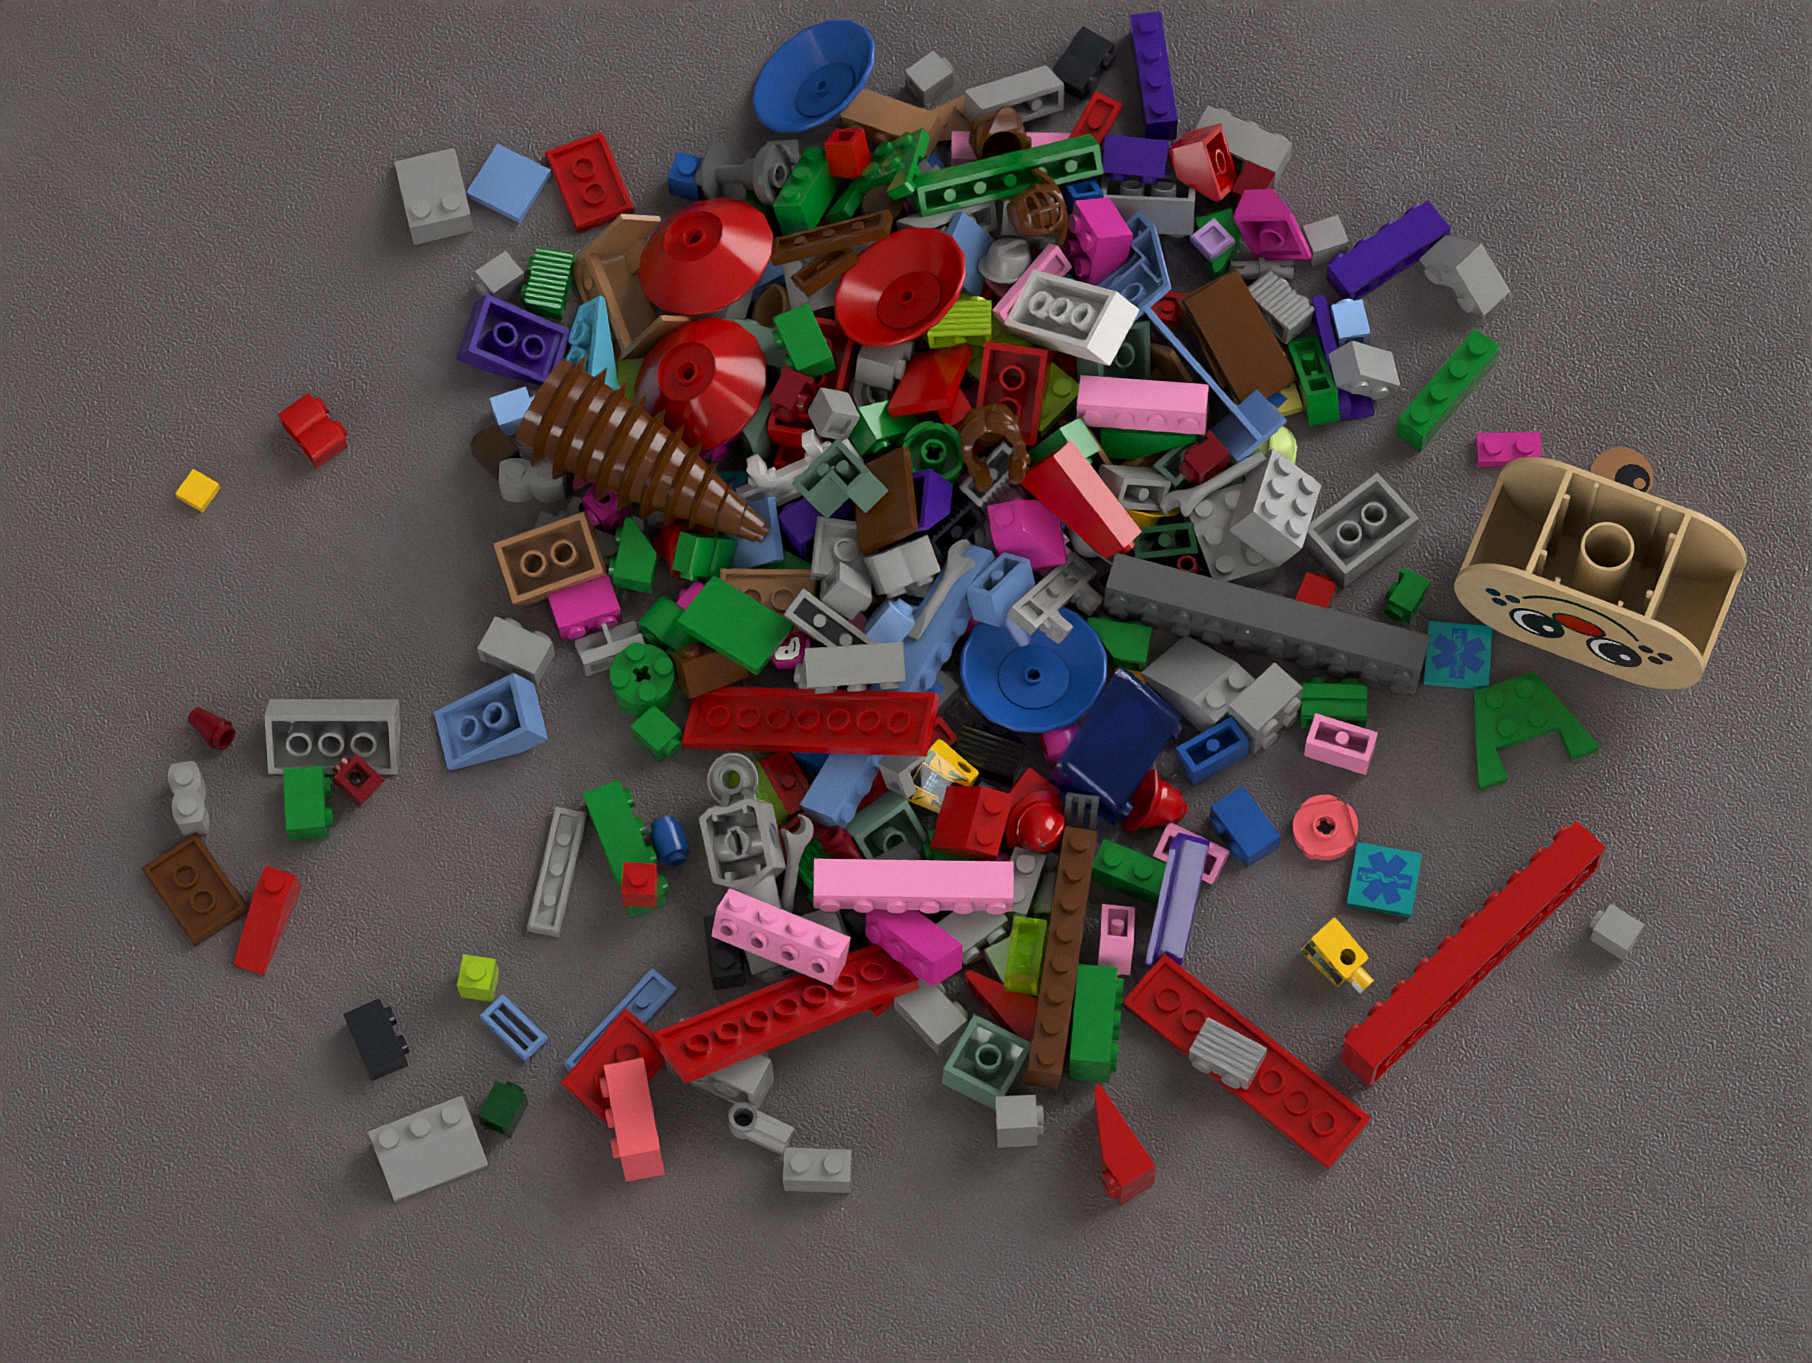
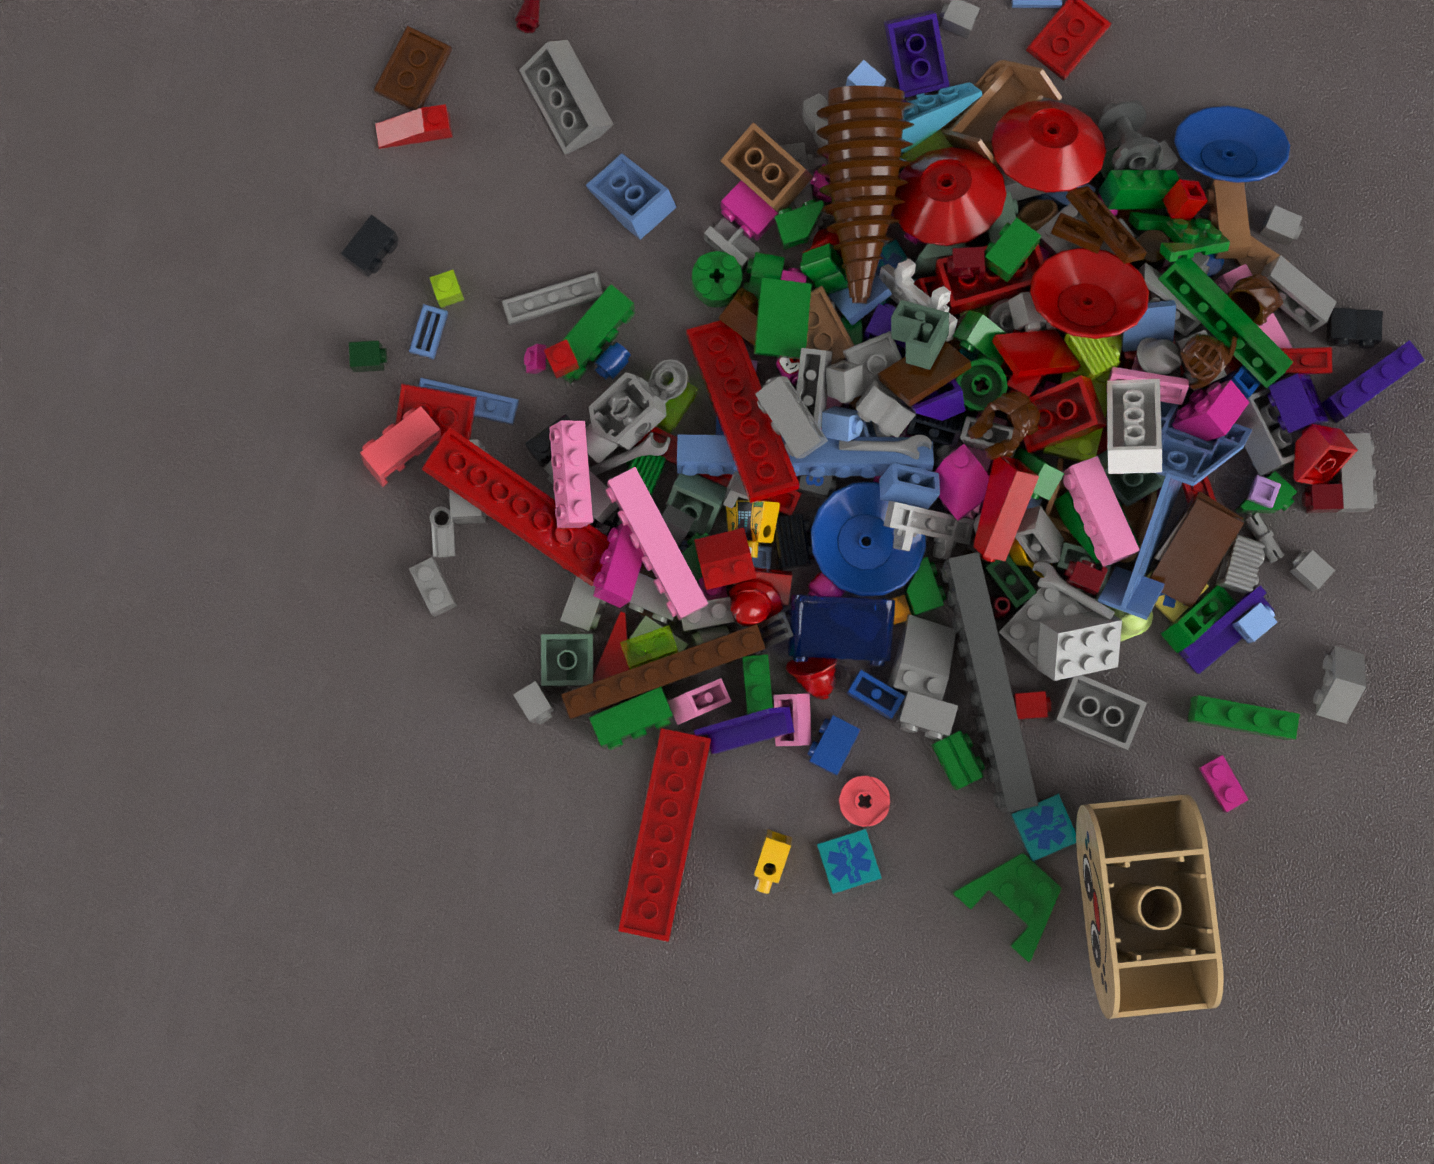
camera: 55 degrees right, 15 degrees up
(188, 798) = (472, 26): light grey brick -> none
(307, 803) = (509, 106): green brick -> none
(369, 778) = (535, 136): dark red brick -> none
(428, 1148) = (313, 323): light grey slope -> none
(491, 448) = (829, 78): dark brown brick -> none
(516, 649) = (693, 182): light grey brick -> none
(548, 283) = (975, 51): green brick -> none
(618, 922) = (535, 359): none -> dark pink plate
(657, 734) = (684, 310): green brick -> none
(682, 177) = (1106, 95): blue brick -> none
(786, 780) = (697, 416): red plate -> none
(833, 414) = (969, 299): light grey panel -> none
(839, 844) = (664, 478): dark red cone -> none
(1123, 1160) = (546, 786): red slope -> none
(1226, 1054) = (657, 821): light grey brick -> none
(1270, 227) = (1296, 526): dark pink slope -> none
(1340, 744) = (929, 781): bright pink brick -> none
(1364, 370) = (1222, 652): light grey brick -> none
(1387, 252) = (1328, 620): dark purple brick -> none
(1406, 595) = (1068, 769): green brick -> none
(1471, 953) = (825, 954): red brick -> none
(1615, 931) = (896, 1043): light grey brick -> none
(1624, 467) = (1245, 875): medium nougat tile -> none

